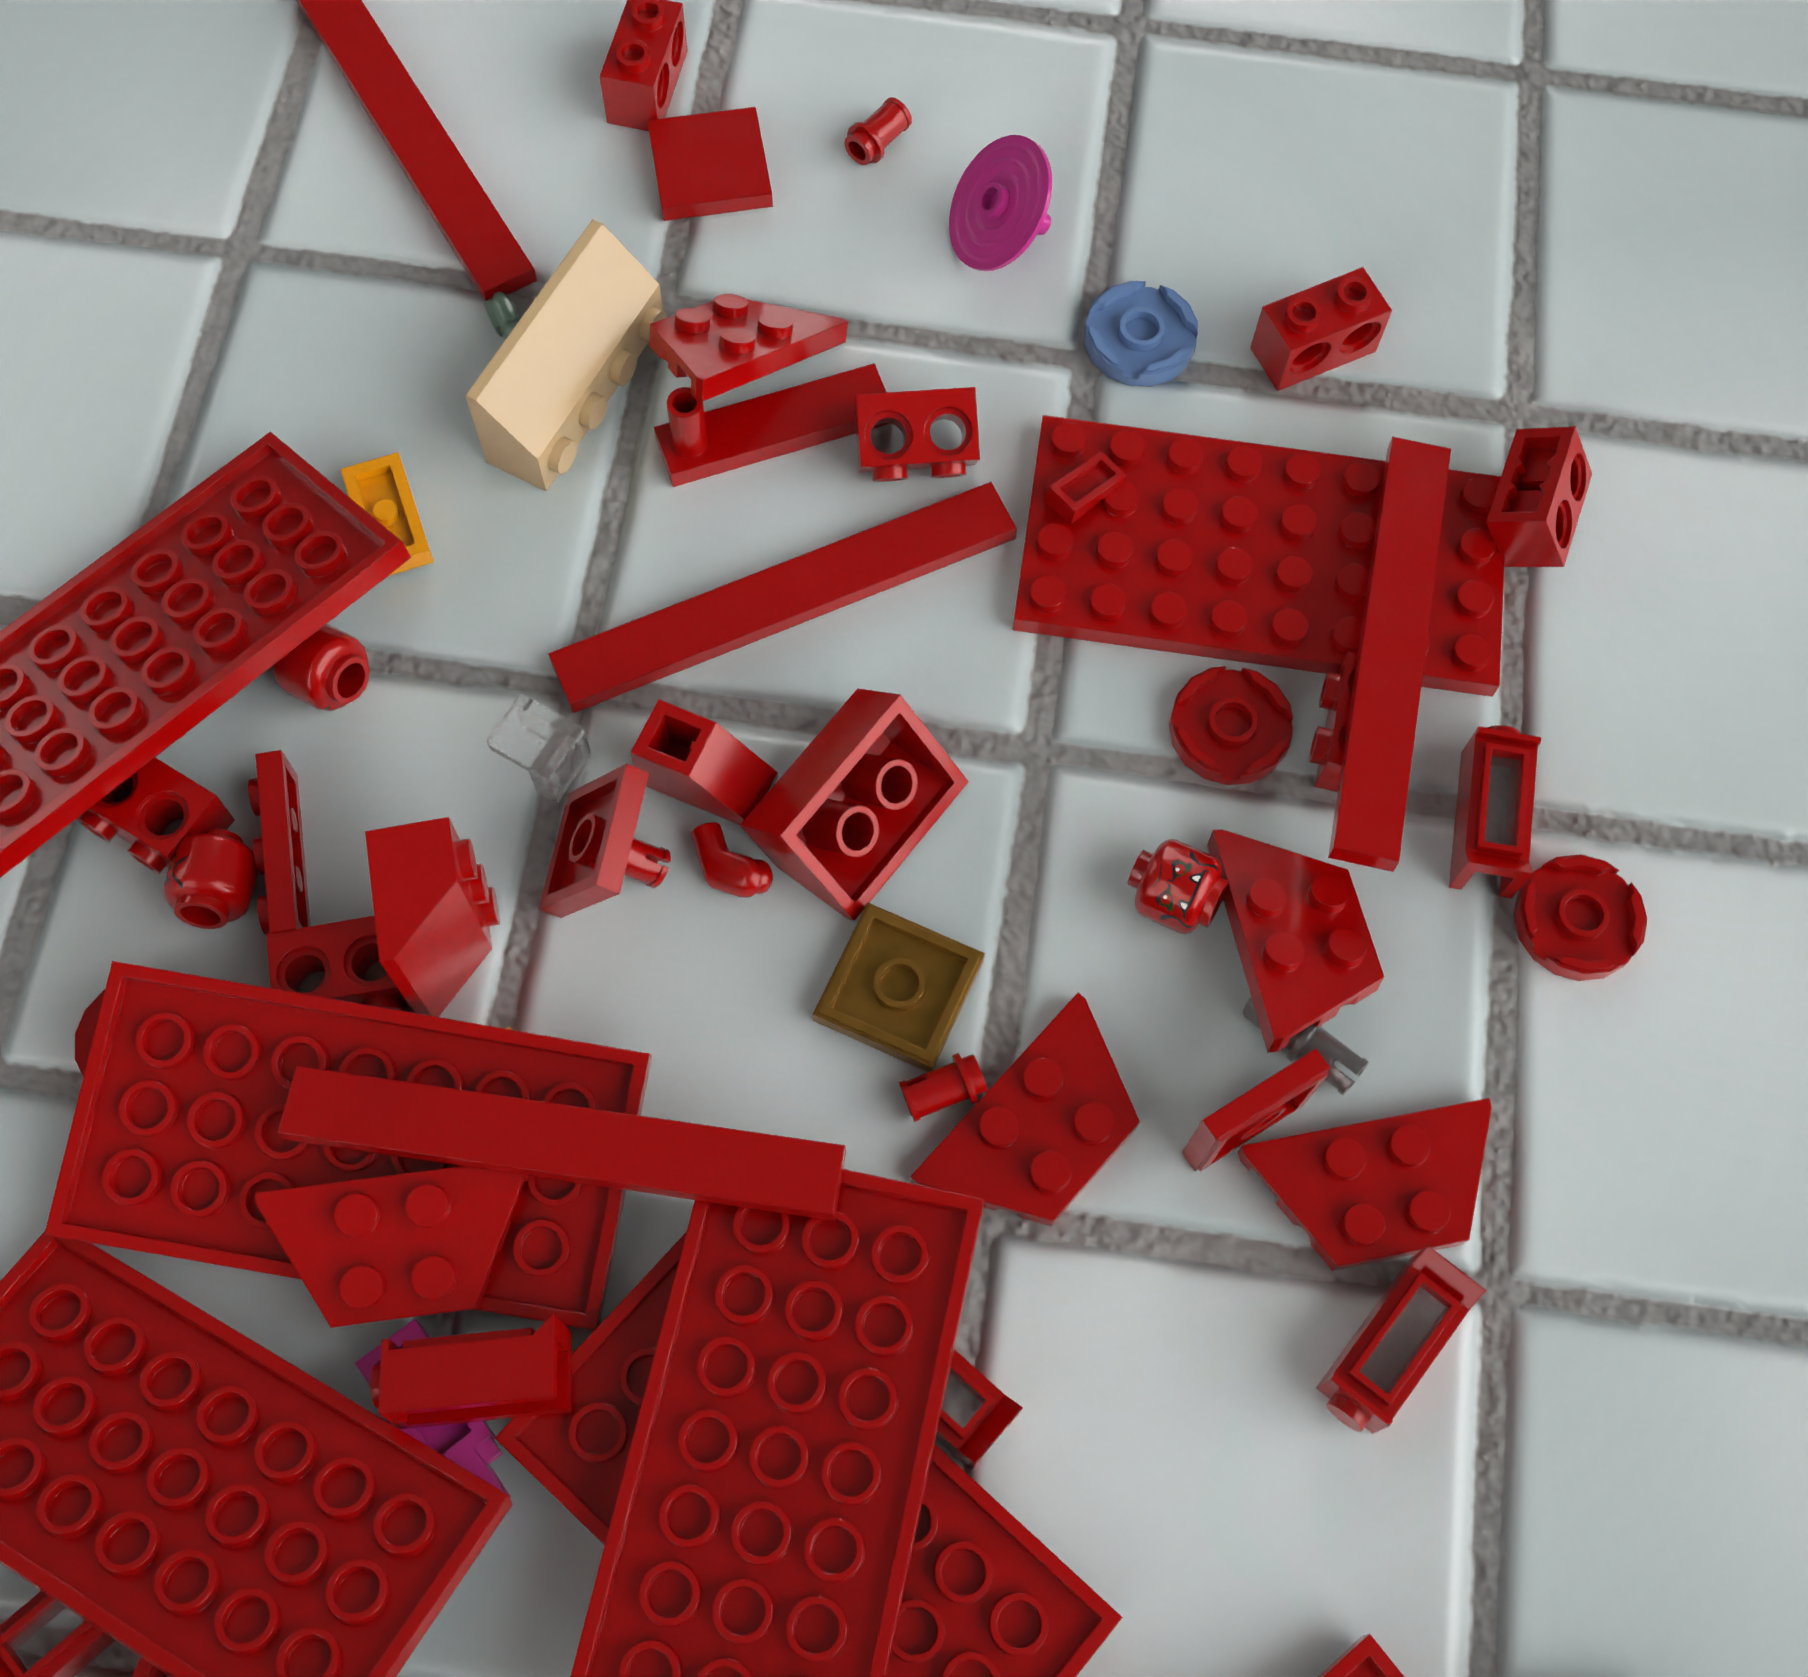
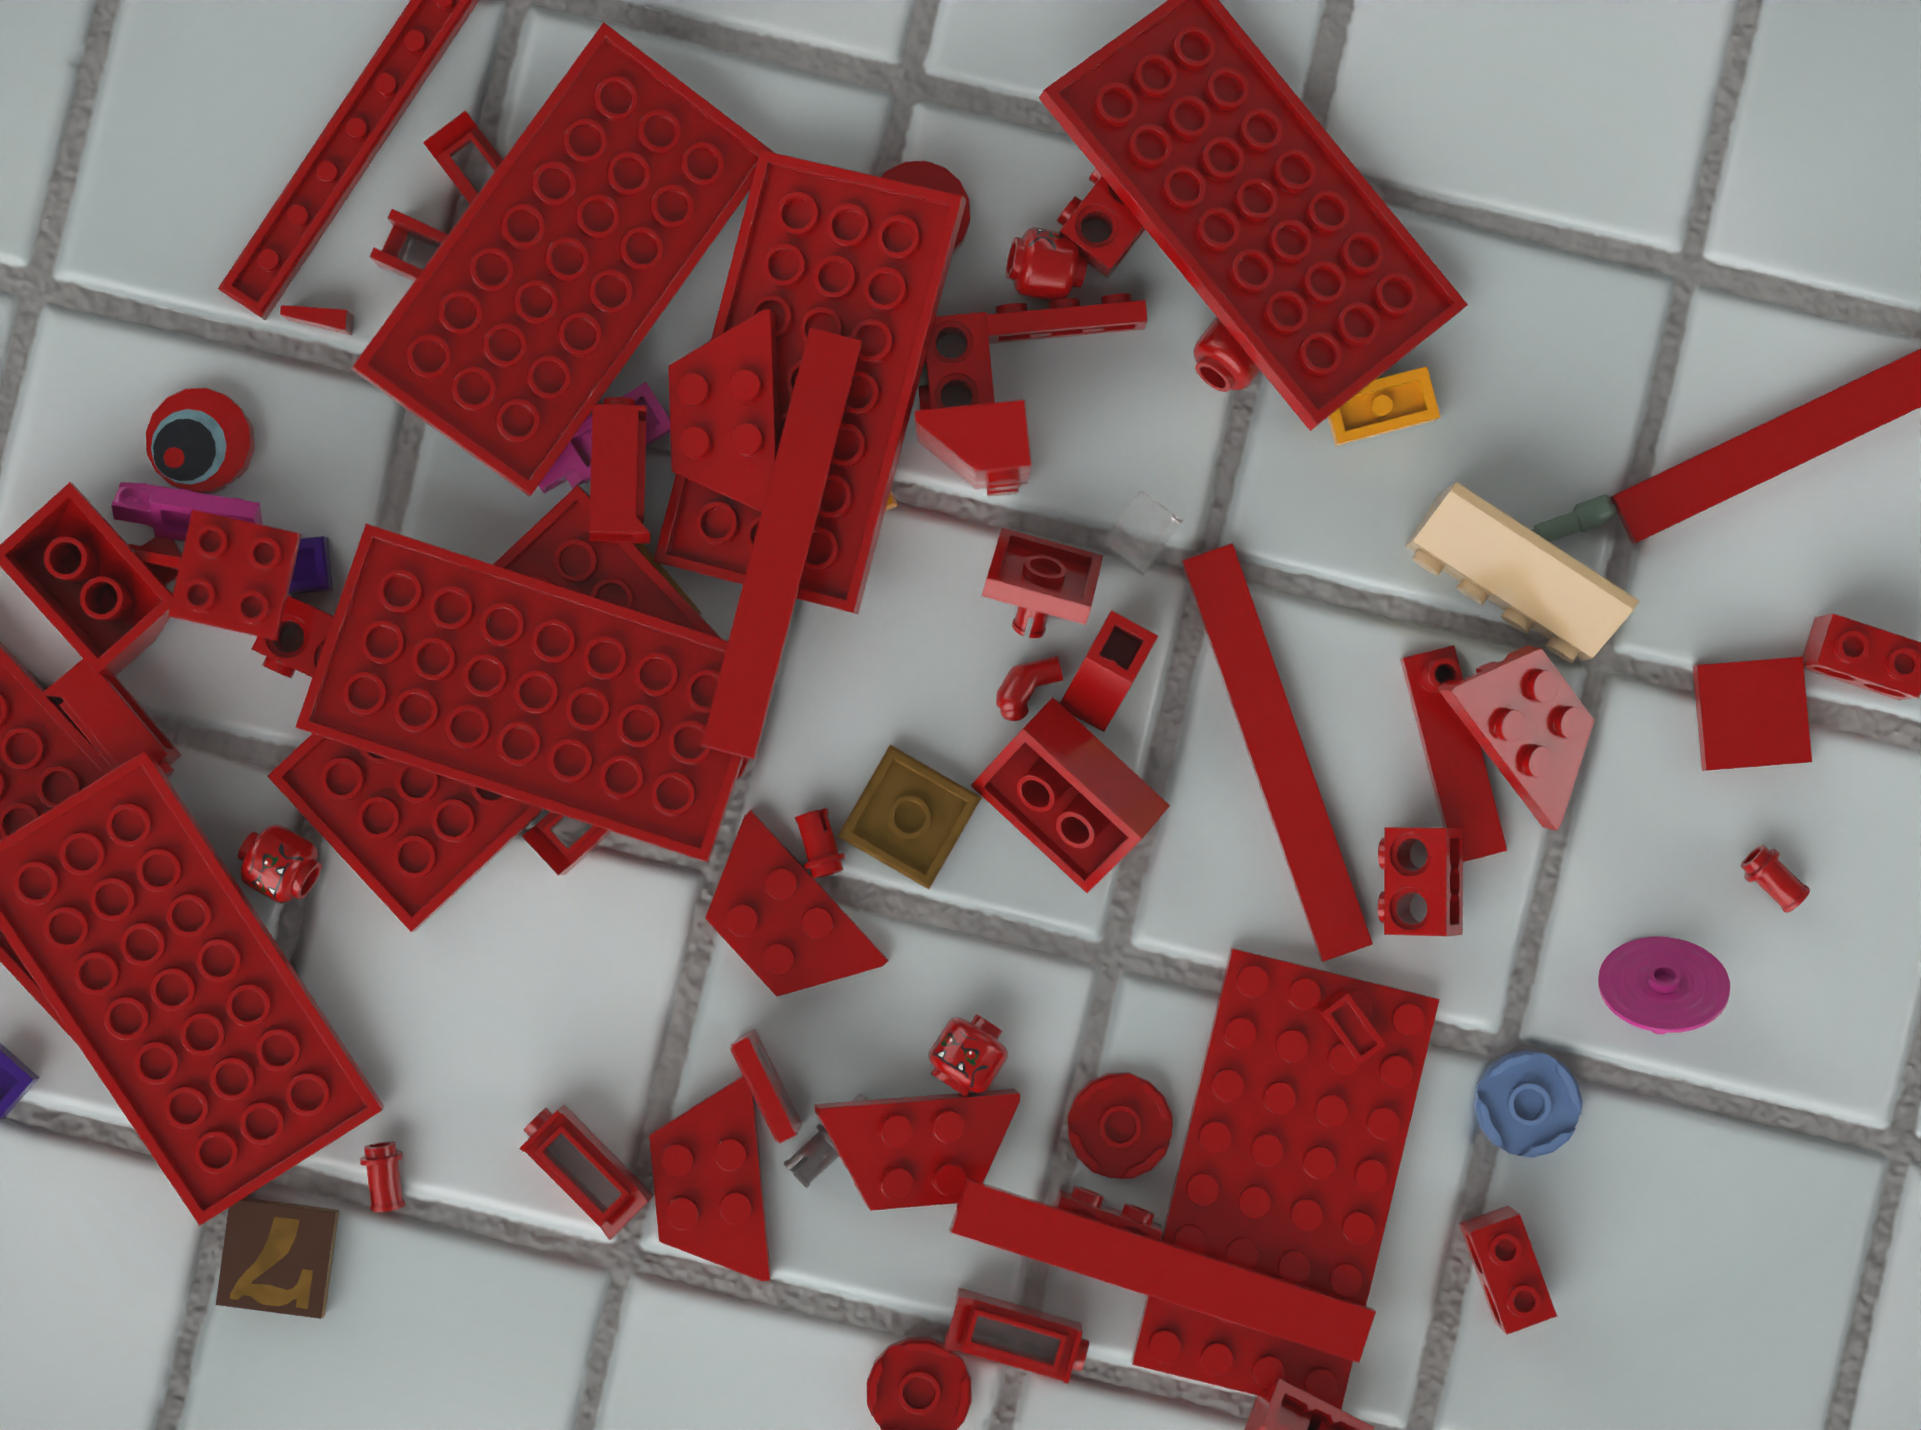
camera: 100 degrees right, 20 degrees up
(1455, 1624) = (383, 1176): none -> red pin

